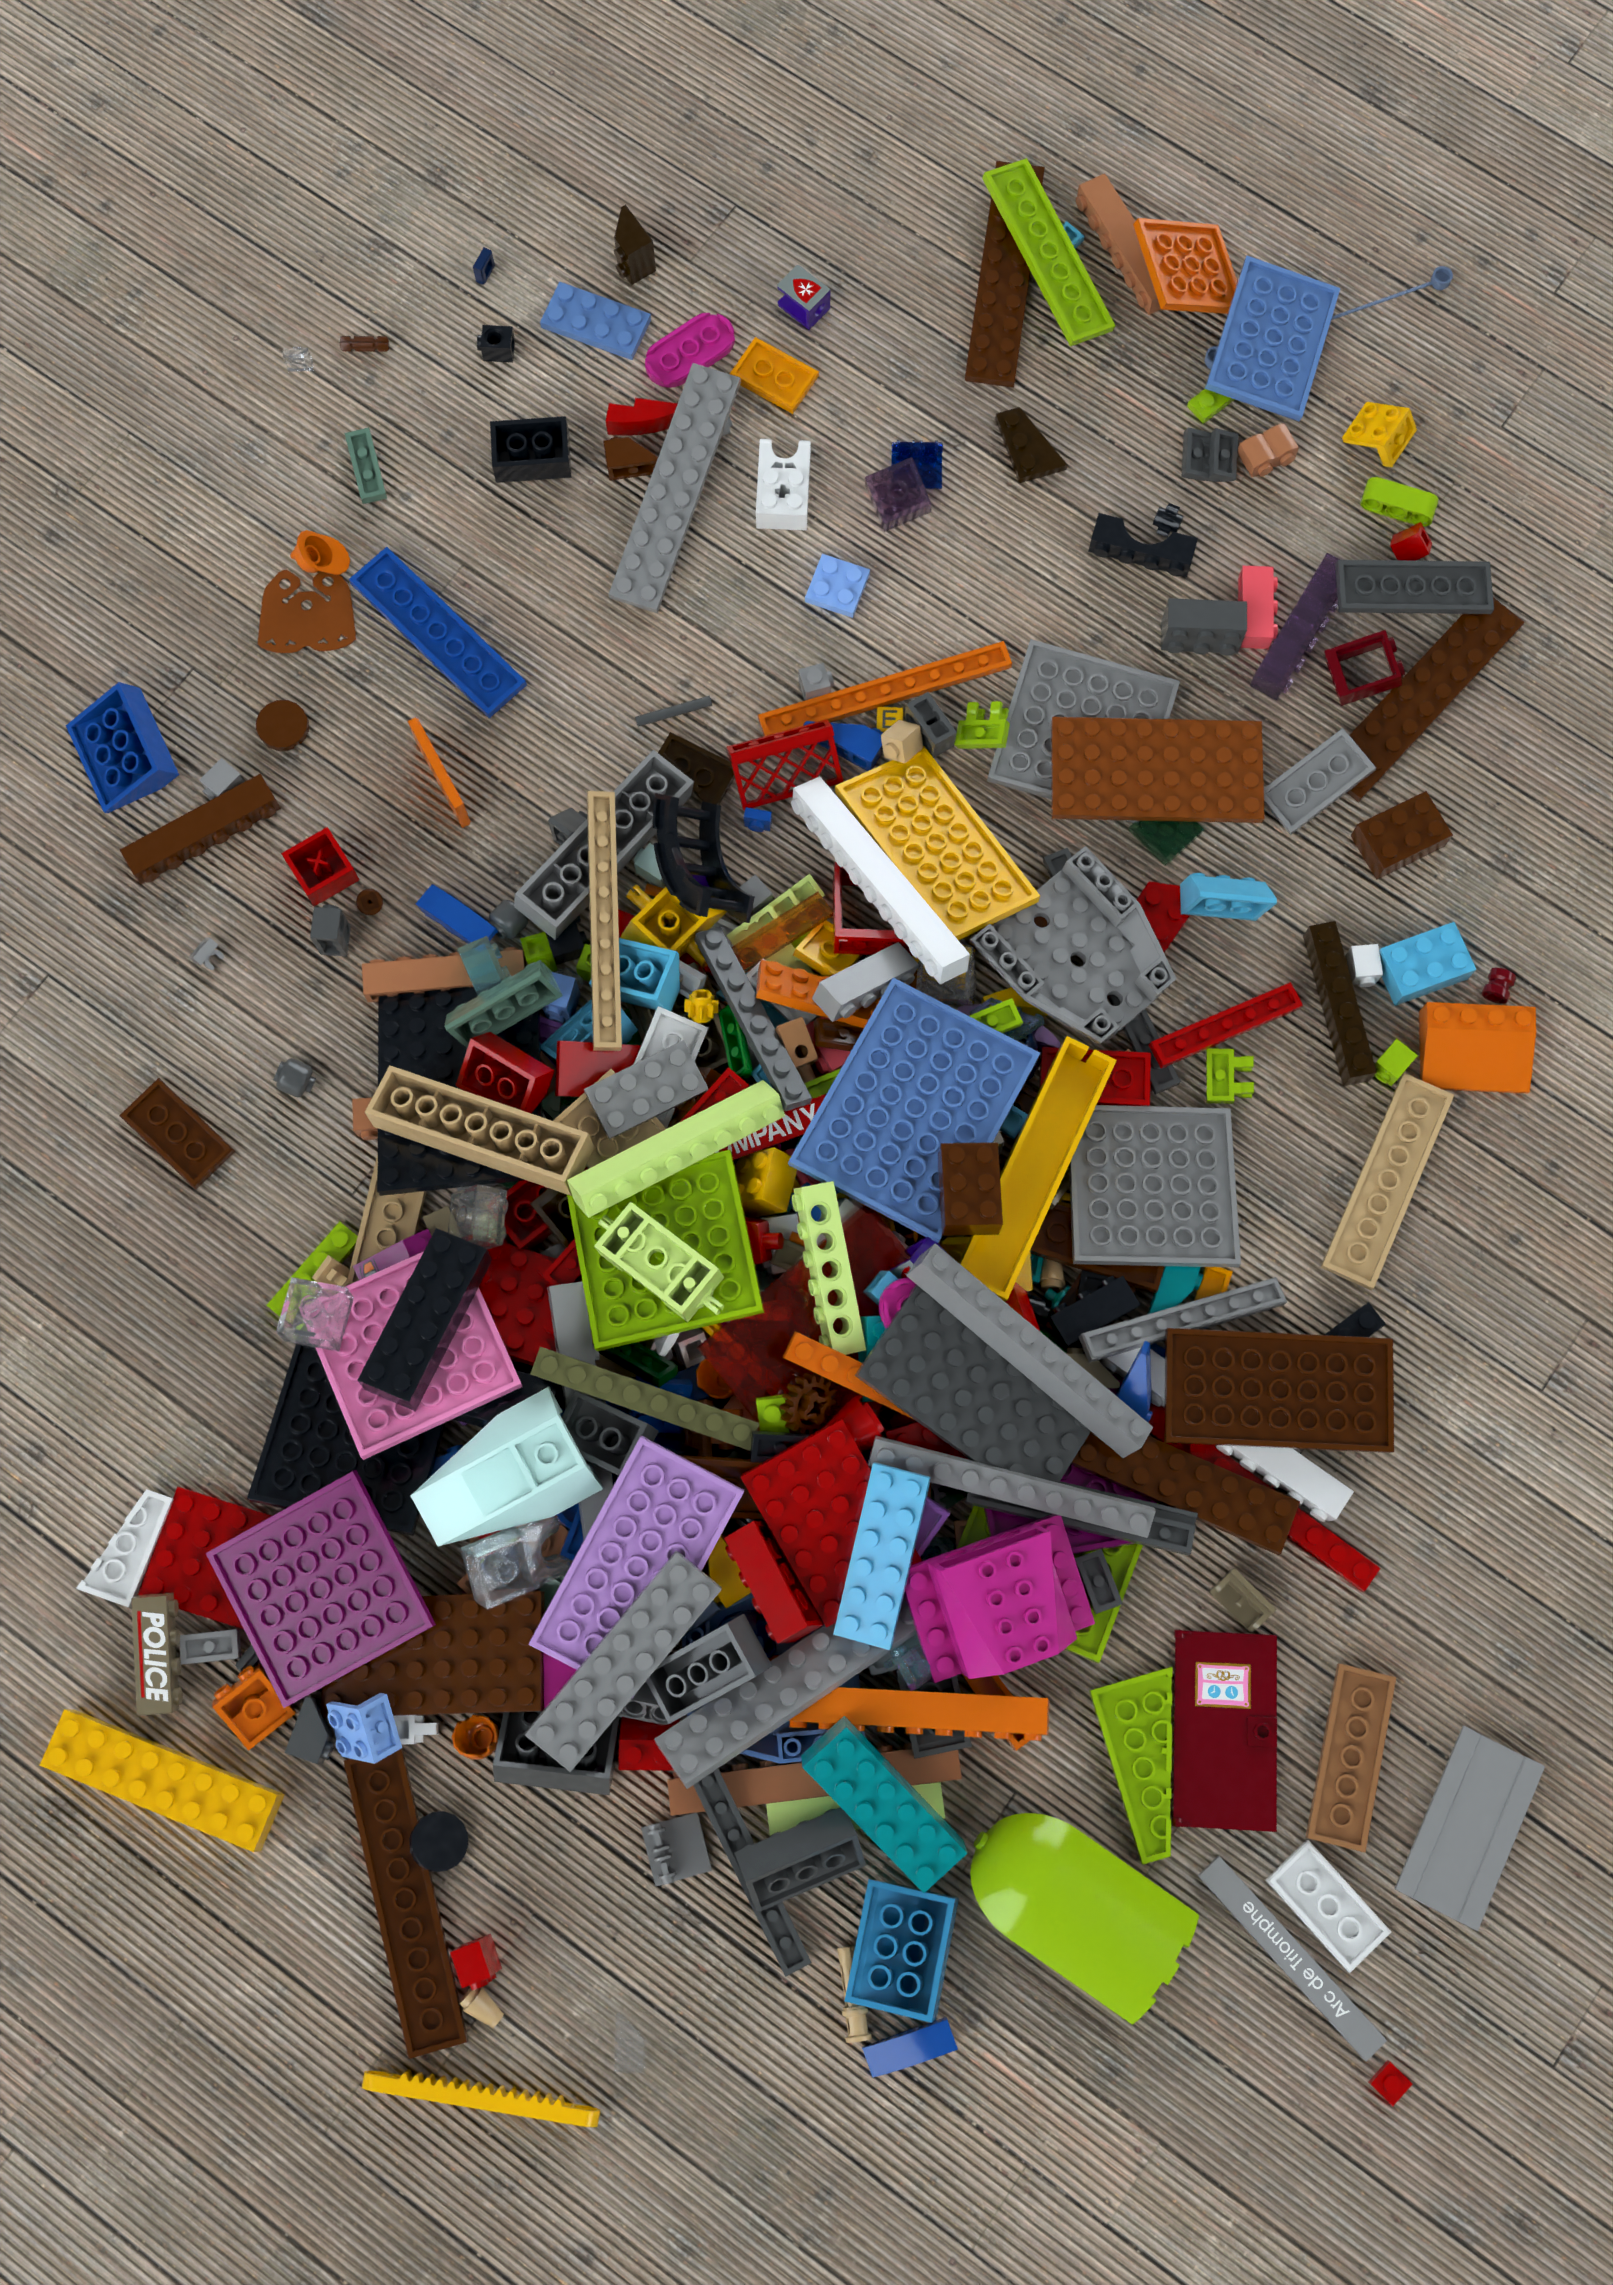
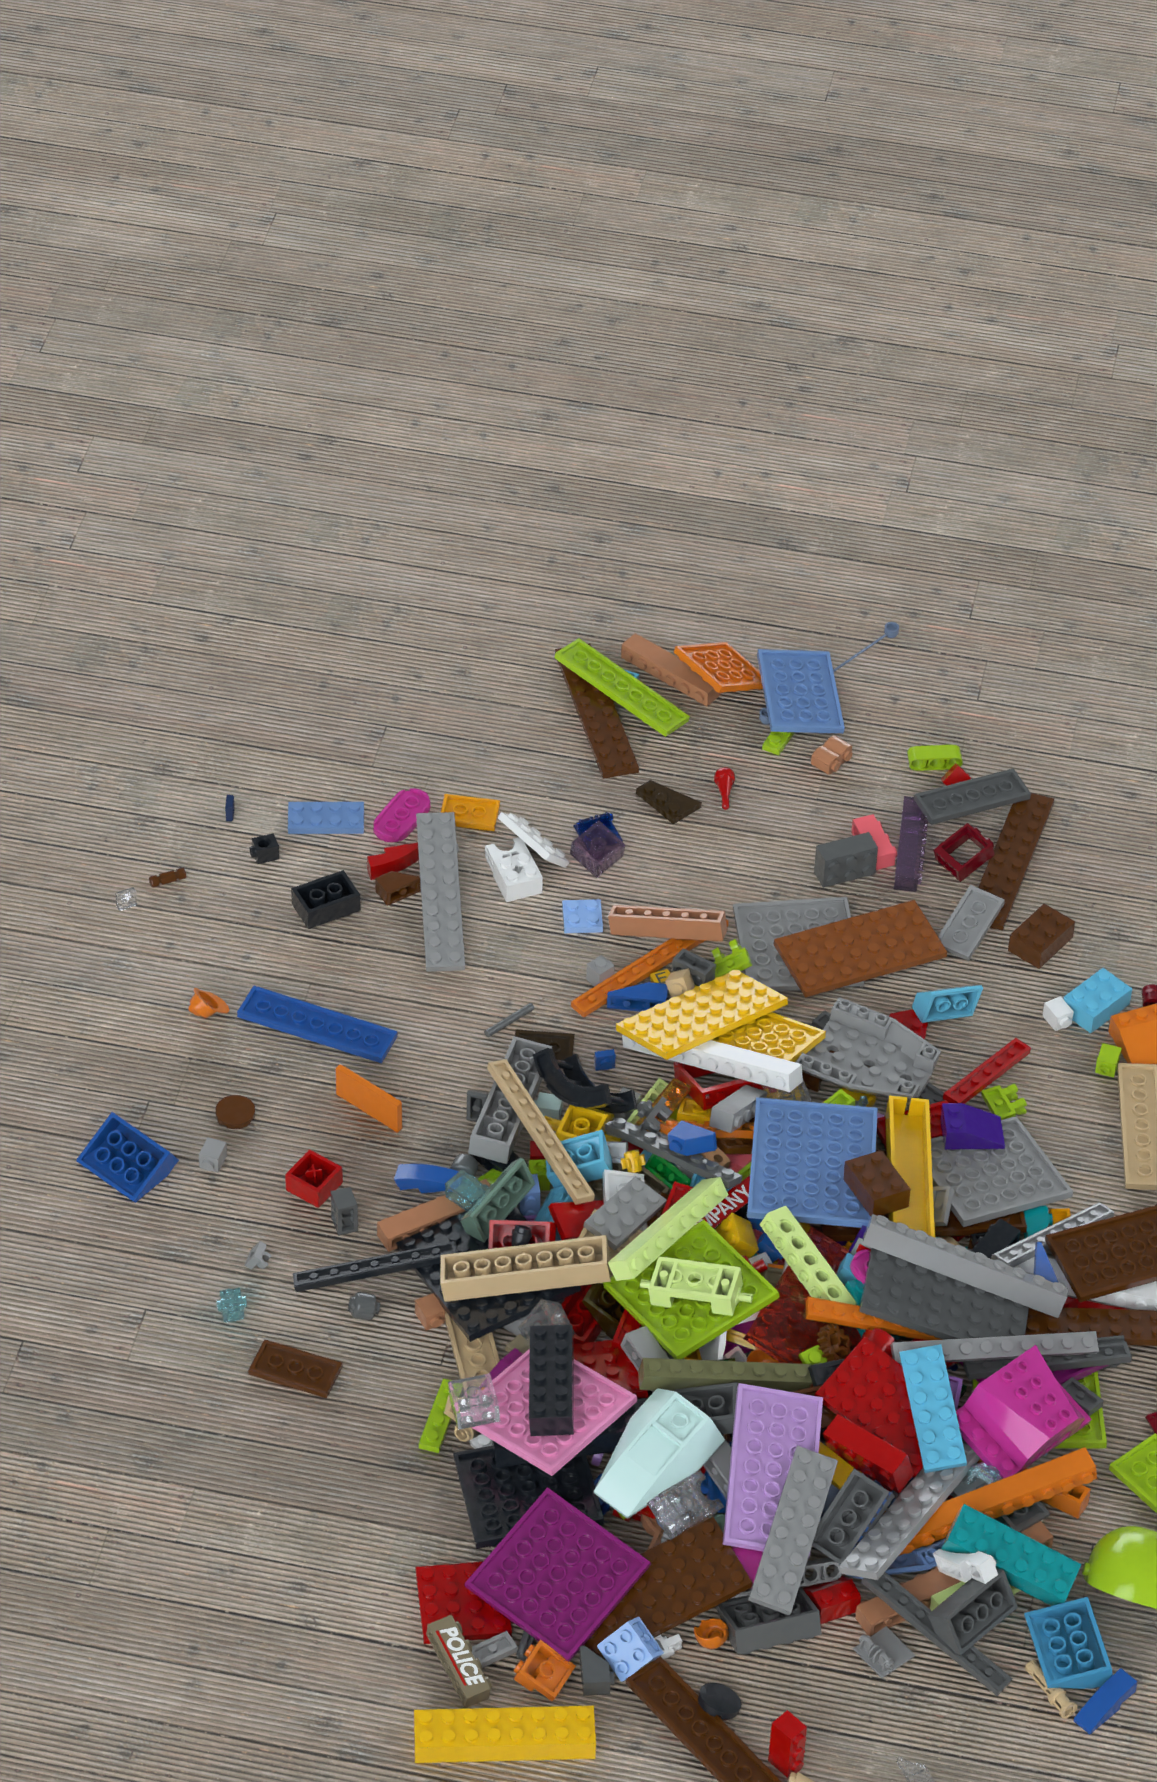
camera: 25 degrees left, 30 degrees down
(126, 1559) = (402, 1621): white wing -> none
(139, 1014) = (231, 1304): none -> clear light blue brick
(200, 829) = (212, 1187): reddish brown brick -> none
(306, 627) = (222, 1051): dark orange piece -> none
(332, 1028) = (372, 1266): none -> black tile
(365, 465) = (210, 945): sand green plate -> none
(369, 901) = (359, 1190): reddish brown tile -> none
(494, 1082) = (521, 1235): none -> black cone
(633, 248) = (333, 764): dark brown slope -> none
(770, 1019) = (691, 1139): none -> blue slope
(771, 938) = (659, 1110): none -> dark grey hips
(783, 742) = (596, 1009): red fence -> none
(804, 297) = (468, 760): piece -> none
(817, 1807) = (966, 1566): none -> white slope
(825, 450) = (532, 837): none -> white plate
(899, 806) = (701, 1014): none -> yellow plate
(928, 644) = (667, 922): none -> nougat brick
(1057, 1223) = (942, 1203): none -> light grey plate
(1113, 439) = (724, 779): none -> red piece
(1113, 541) = (758, 834): black arch -> none
(1157, 1115) = (970, 1128): none -> dark purple slope
(1166, 838) = (886, 987): clear green plate -> none
(1168, 520) = (787, 811): black gear -> none
(1209, 455) = (794, 770): dark grey slope -> none
(1339, 1003) = (1054, 1039): dark brown brick -> none
(1384, 428) = (899, 719): yellow bracket -> none

